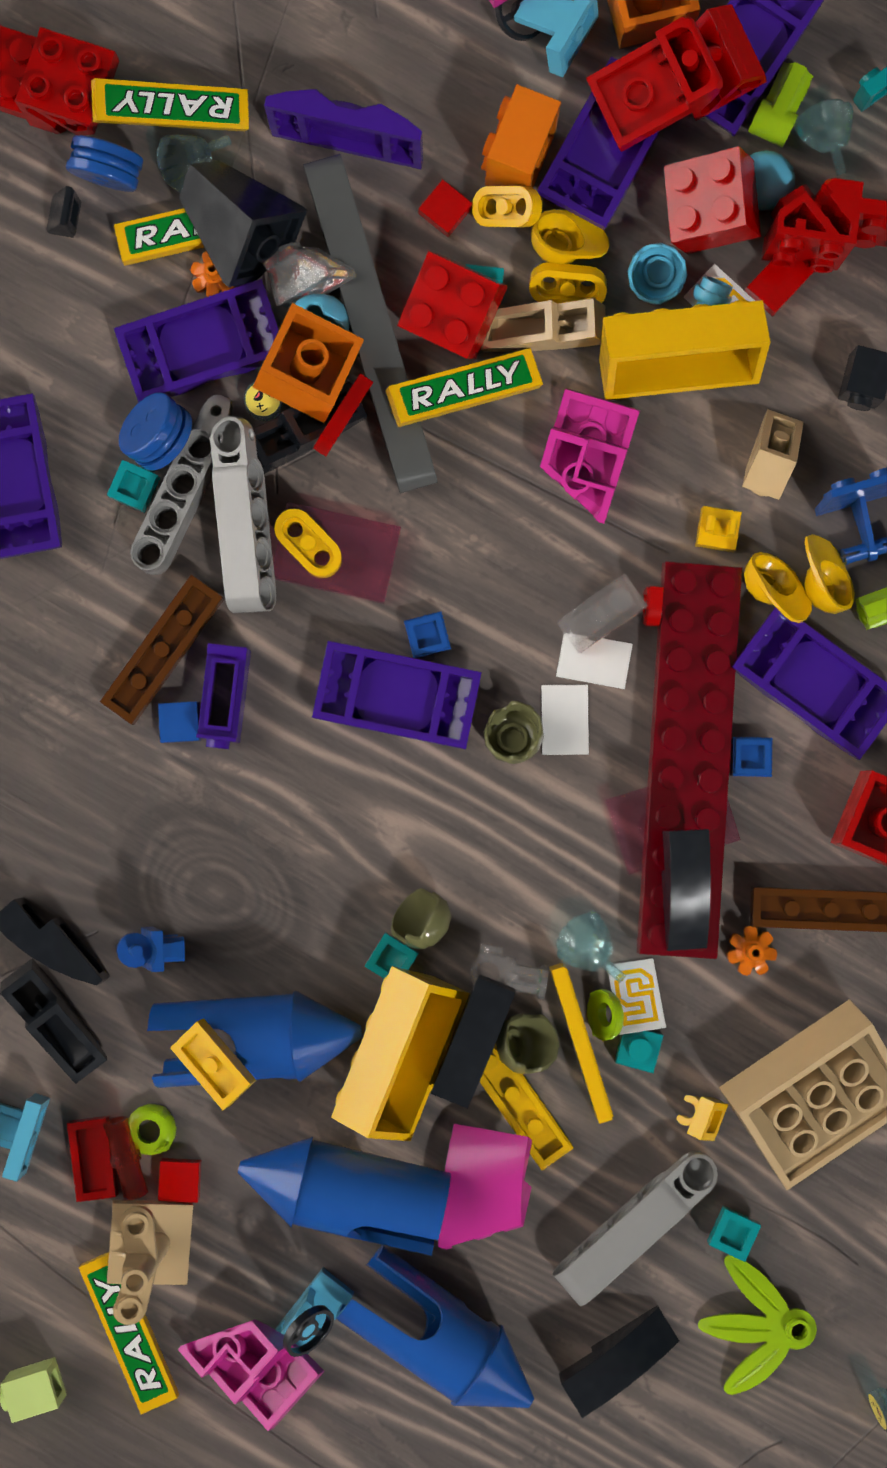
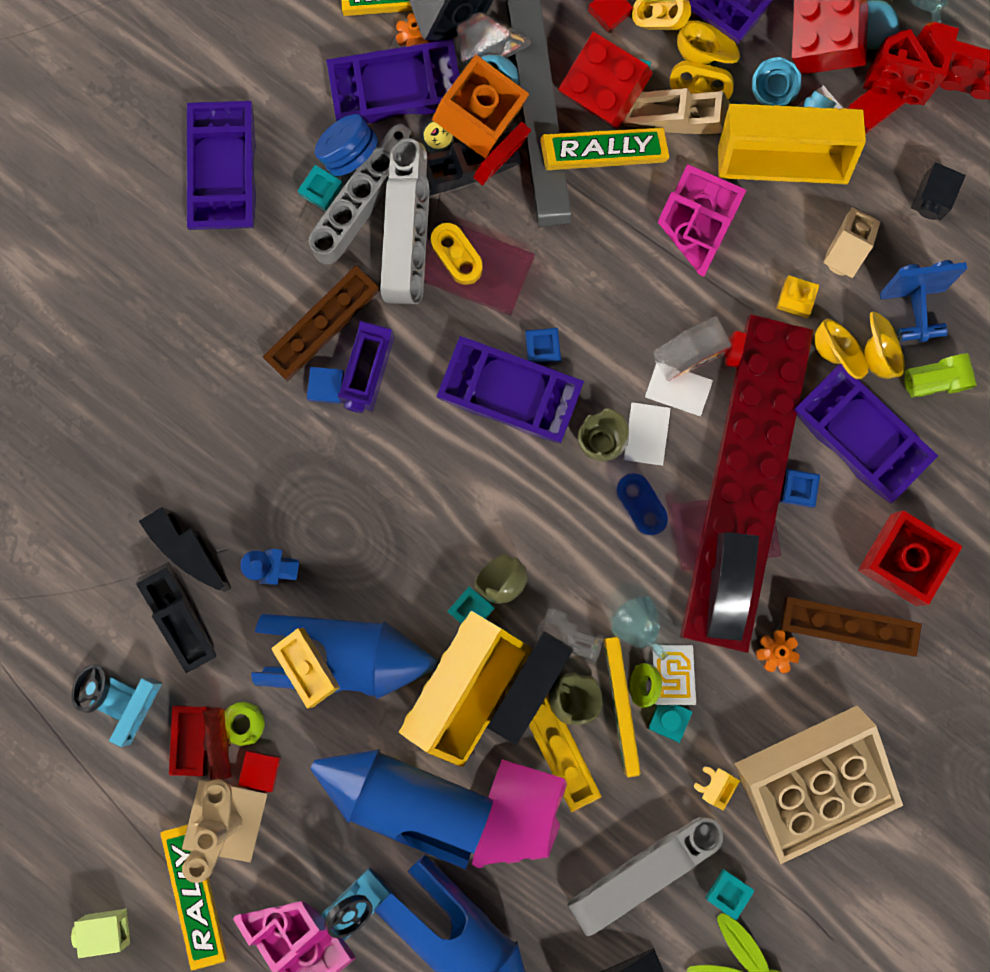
camera: 10 degrees right, 5 degrees down
(570, 806) = (644, 503): none -> clear blue plate

